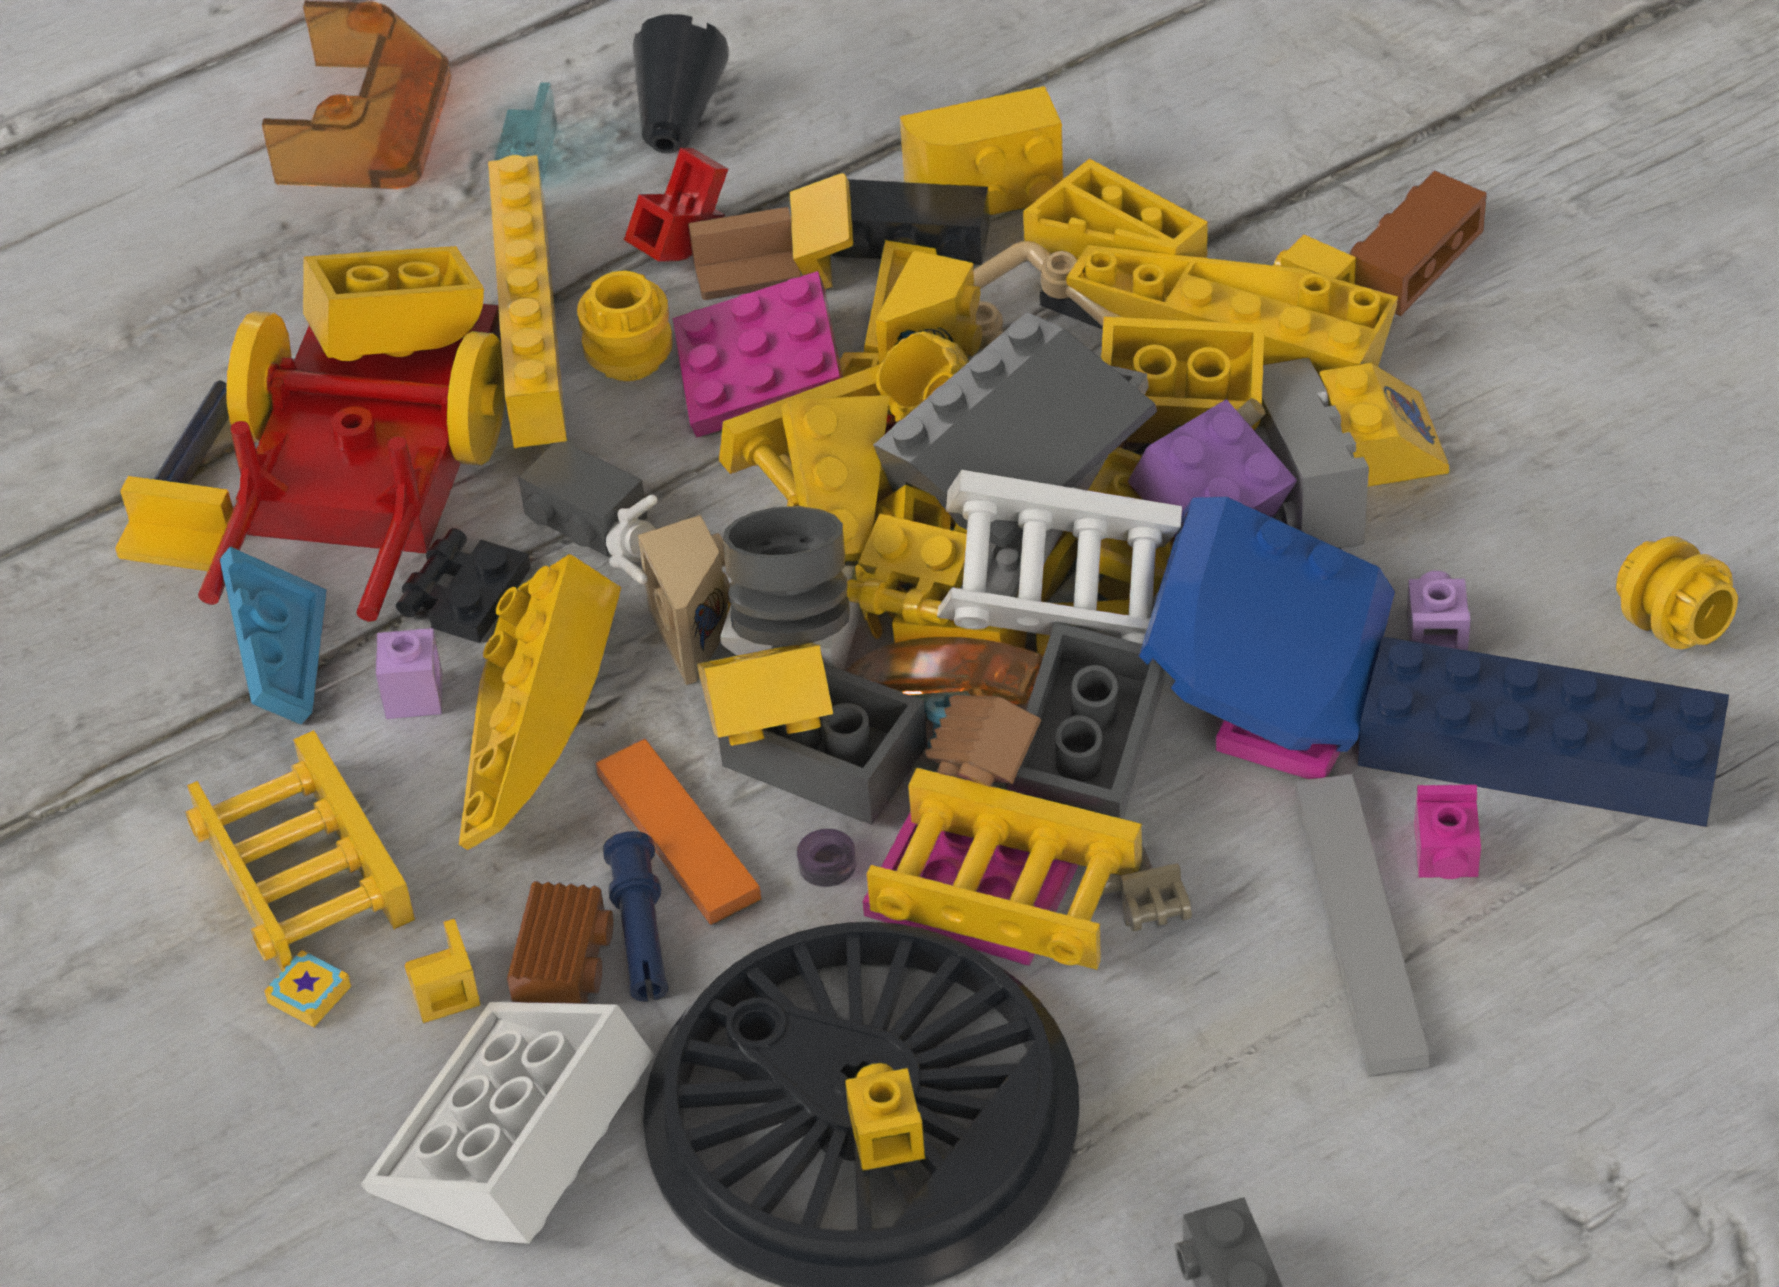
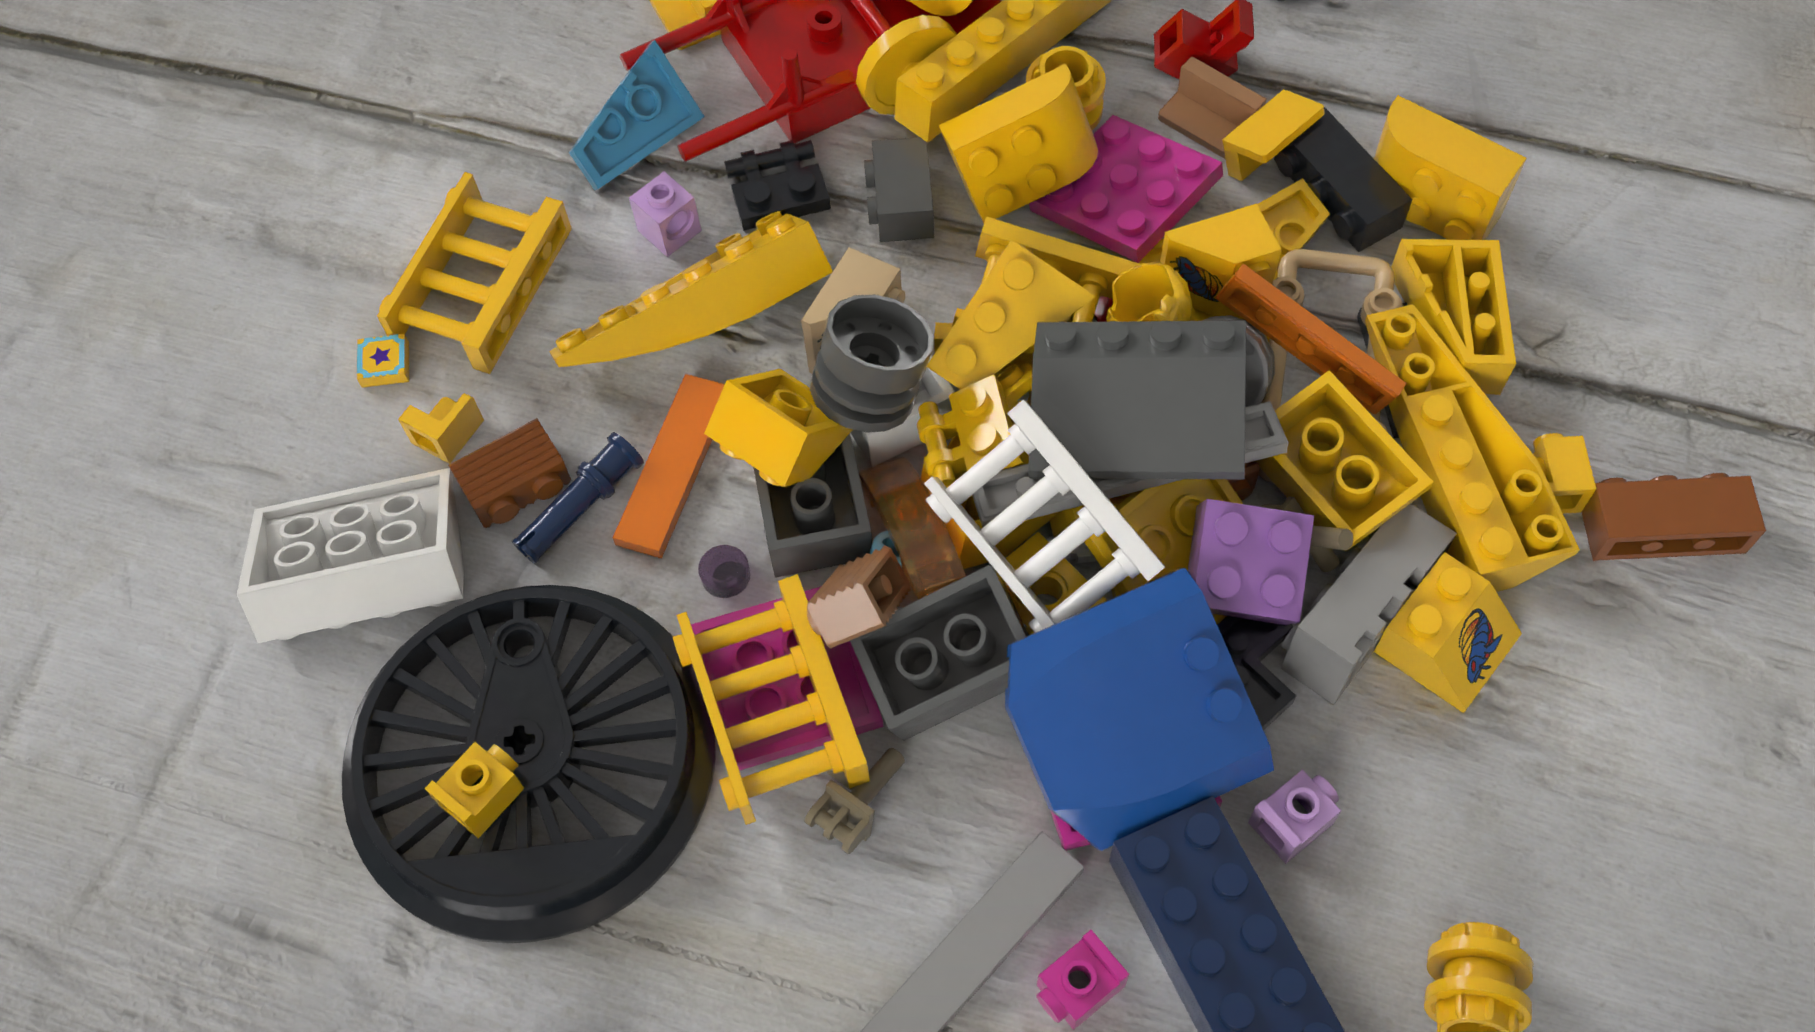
camera: 50 degrees right, 15 degrees up
(623, 538) = (892, 247): white plant -> none
(652, 379) = (1022, 144): none -> yellow brick
(987, 314) = (1309, 338): none -> orange tile

